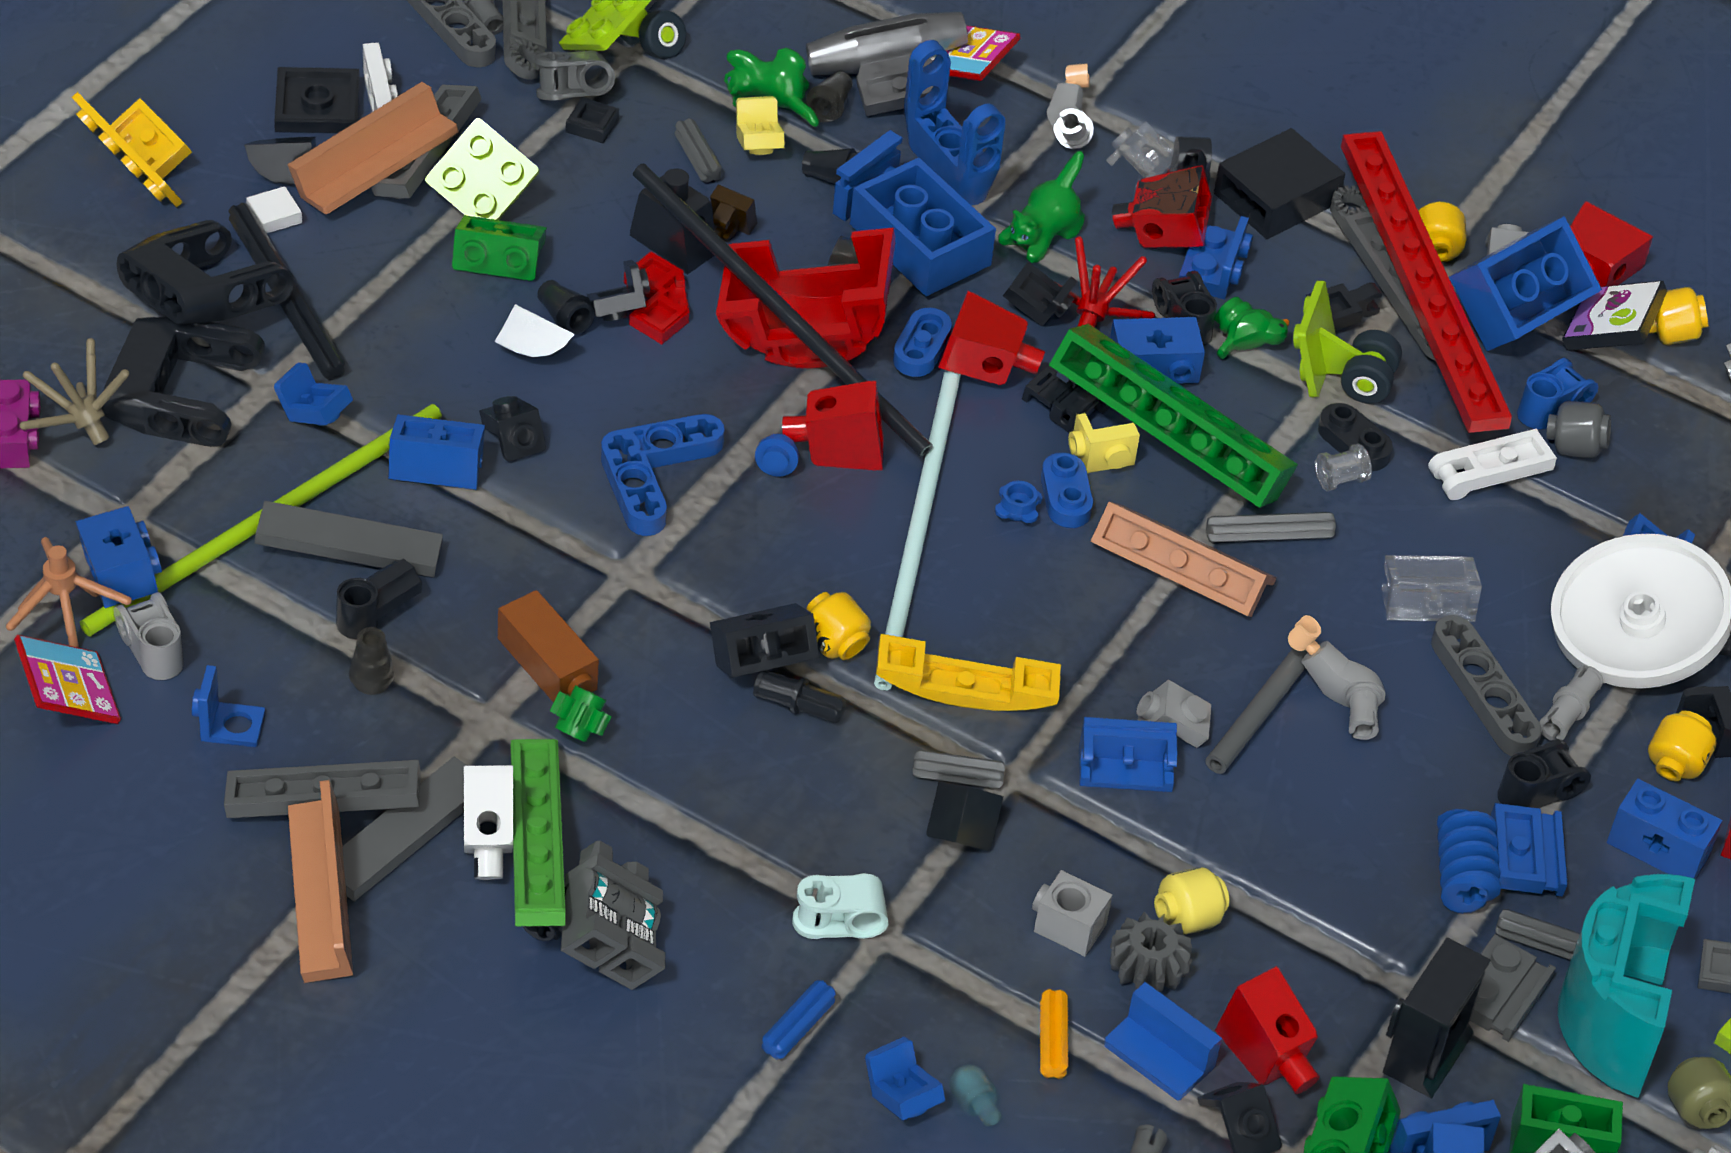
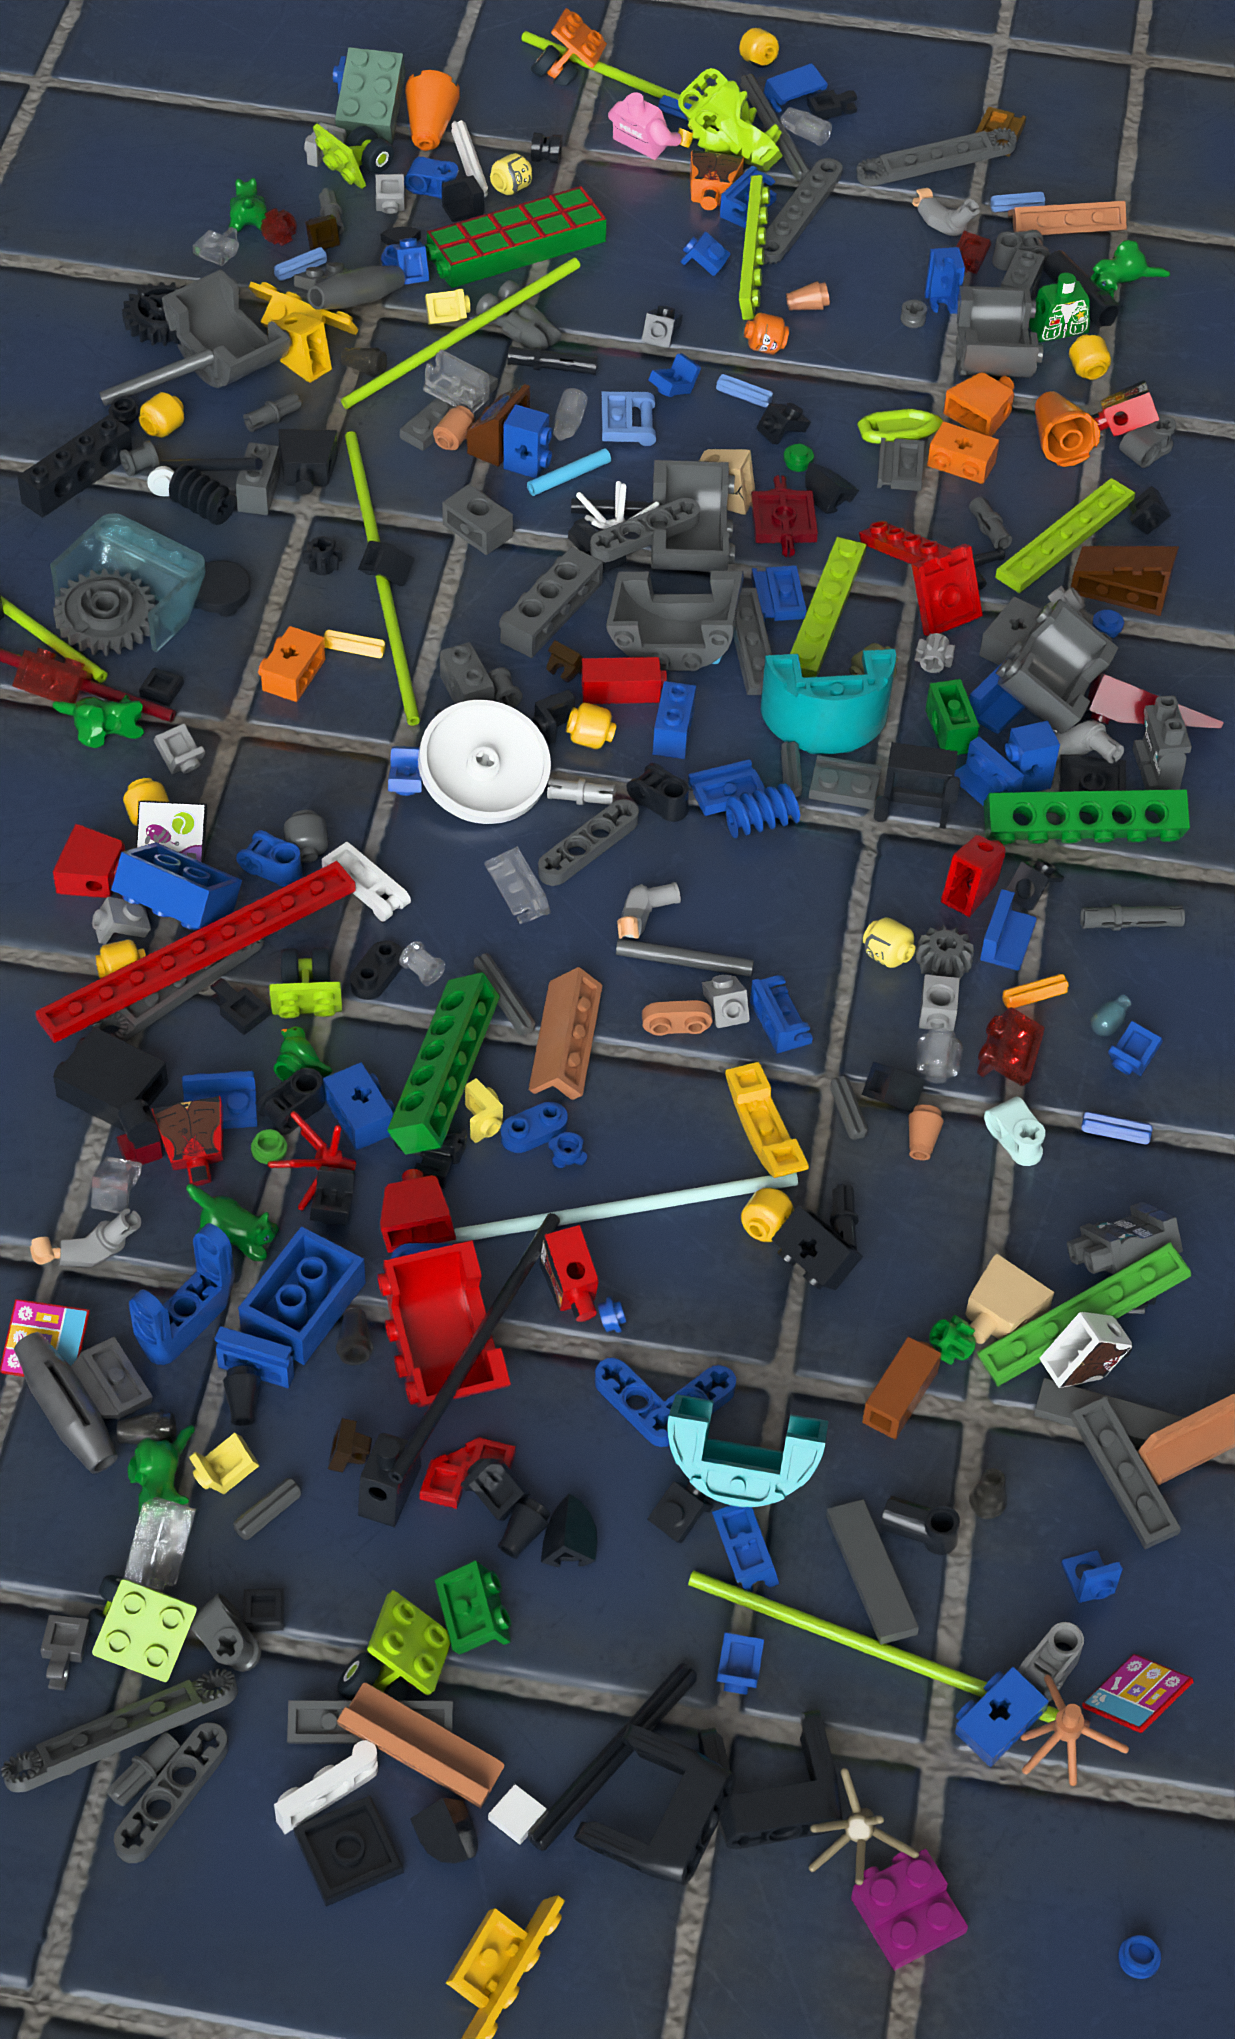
camera: 110 degrees left, 5 degrees up
(530, 435) = (742, 1472): none -> cylinder
(606, 786) = (1005, 1300): none -> tan torso
(691, 47) = (159, 1543): none -> clear hinge
(885, 818) = (924, 1129): none -> nougat cone
(968, 959) = (1011, 1046): none -> clear red bracket
(990, 876) = (938, 1055): none -> clear head
(1143, 280) = (268, 1146): none -> bright green plate
(1164, 641) = (677, 1017): none -> nougat plate

